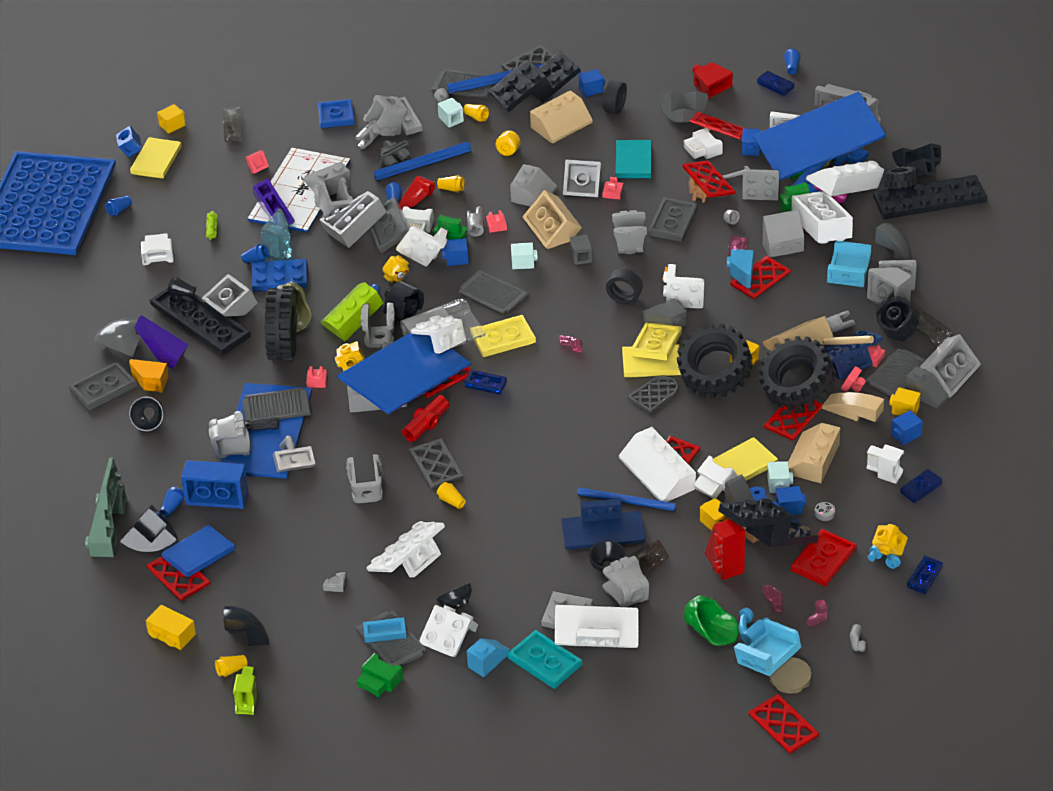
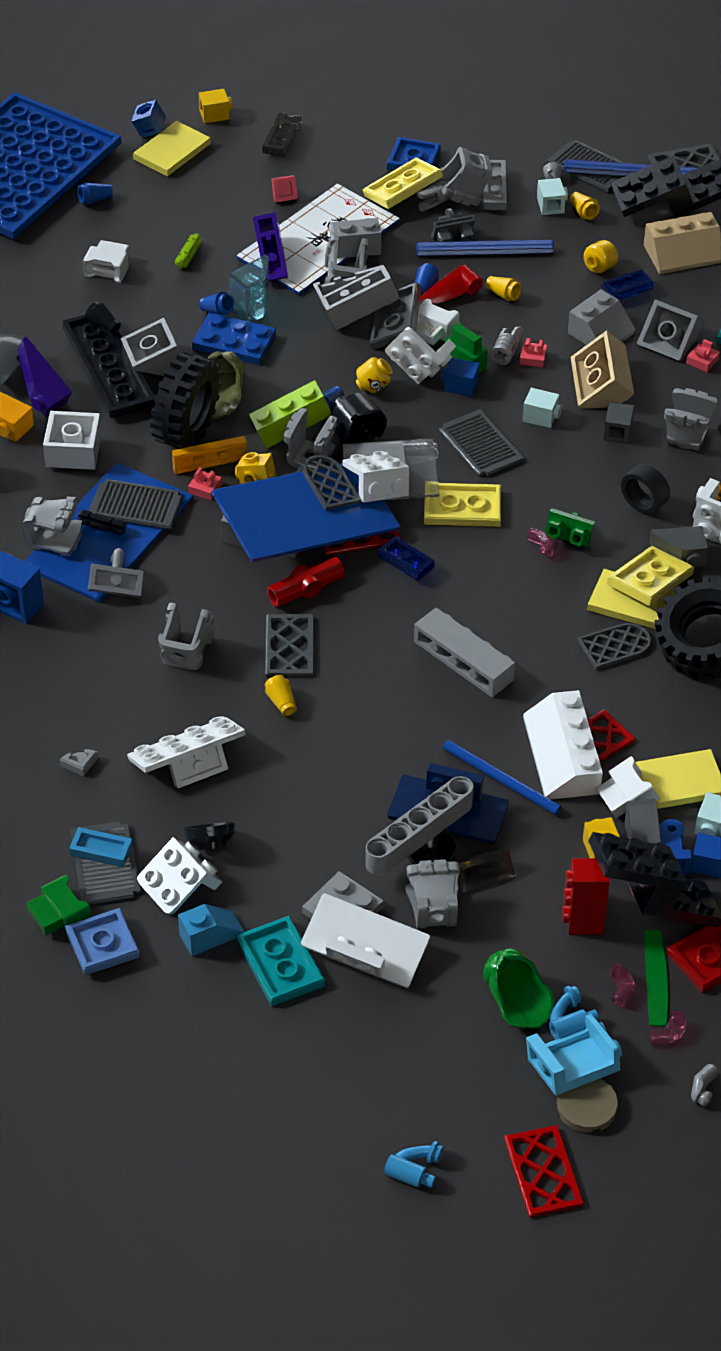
camera: 20 degrees right, 5 degrees up
(208, 376) = (72, 440): none -> white brick
(310, 357) = (209, 454): none -> light orange tile
(341, 133) = (402, 183): none -> light yellow tile
(408, 336) = (338, 503): none -> dark grey window
(420, 687) = (102, 941): none -> medium blue plate
(537, 156) = (628, 285): none -> clear blue plate
(559, 428) = (464, 652): none -> light grey brick
(586, 327) = (569, 527): none -> green hips
(595, 543) = (419, 825): none -> light grey beam
(694, 752) = (402, 1169): none -> dark azure plant
(792, 587) = (656, 978): none -> green sticker

